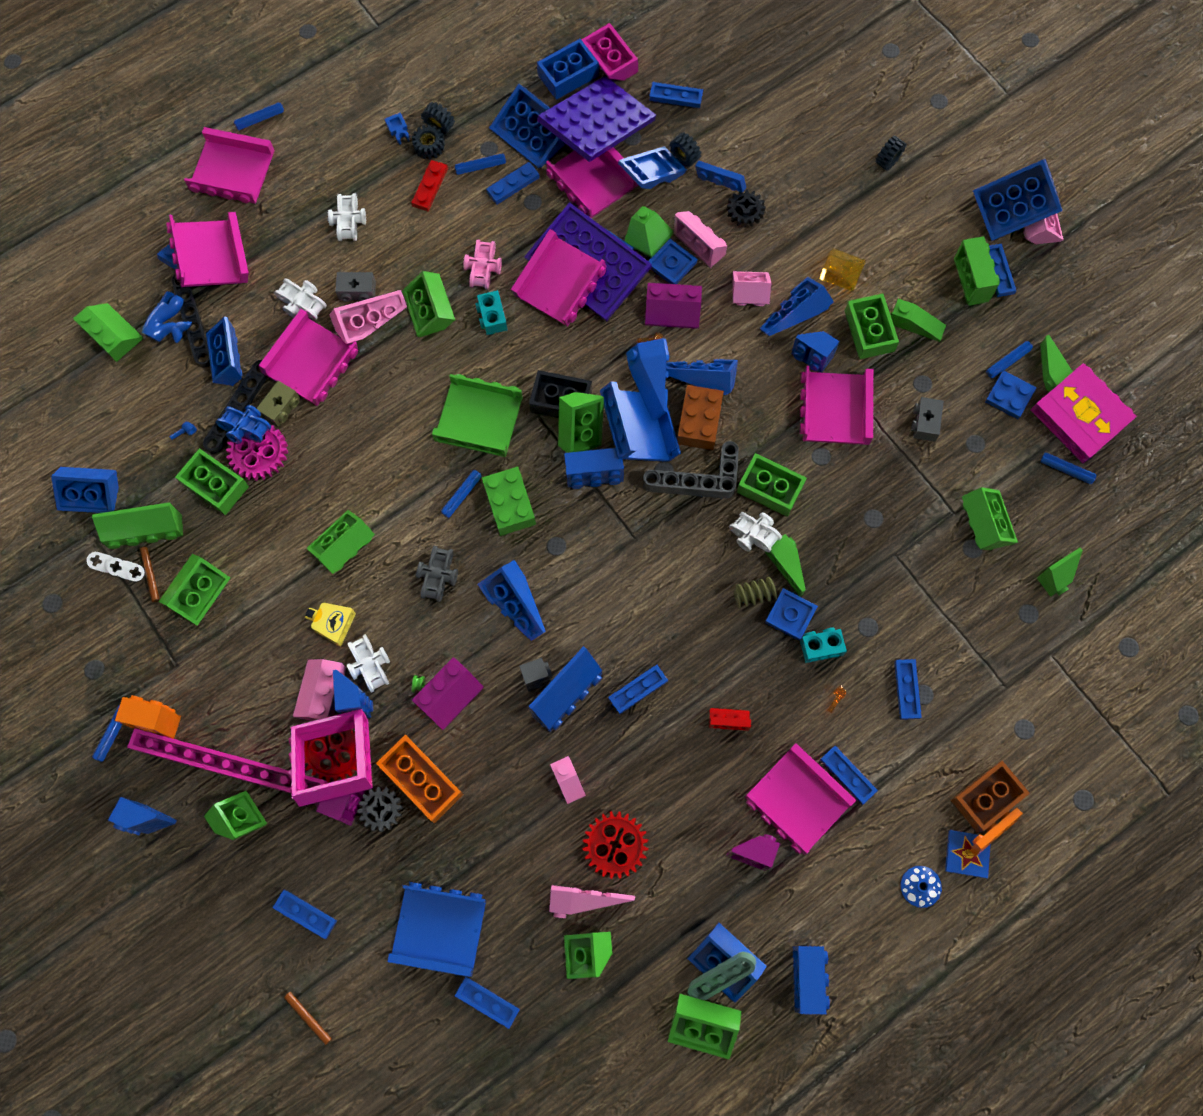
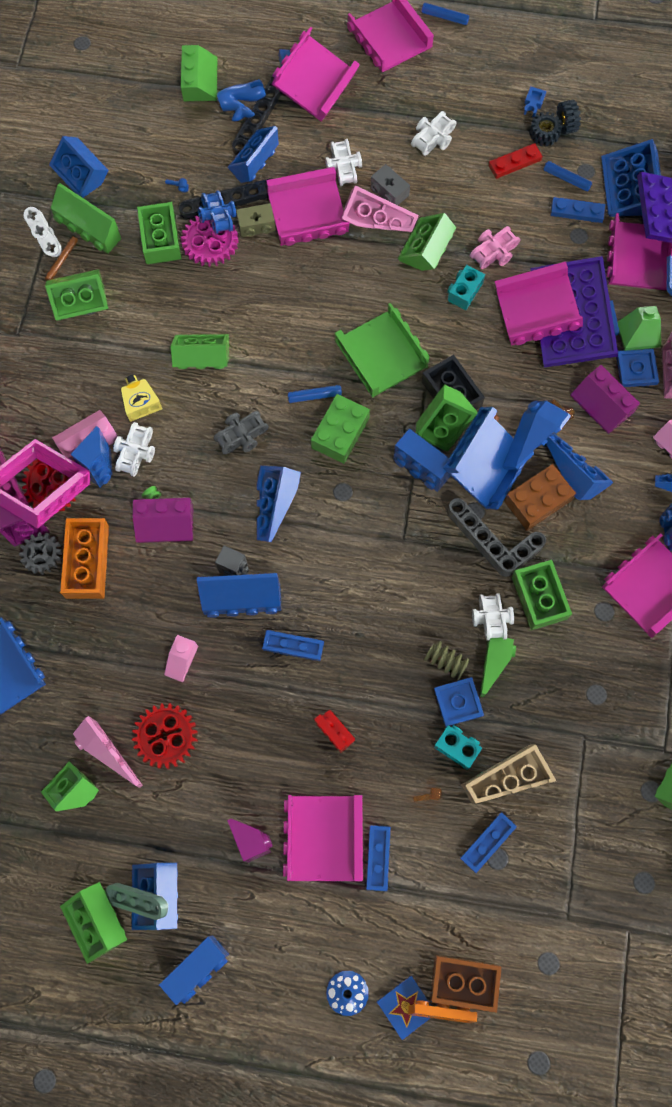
camera: 45 degrees right, 0 degrees up
(877, 628) = (511, 775): none -> tan wedge

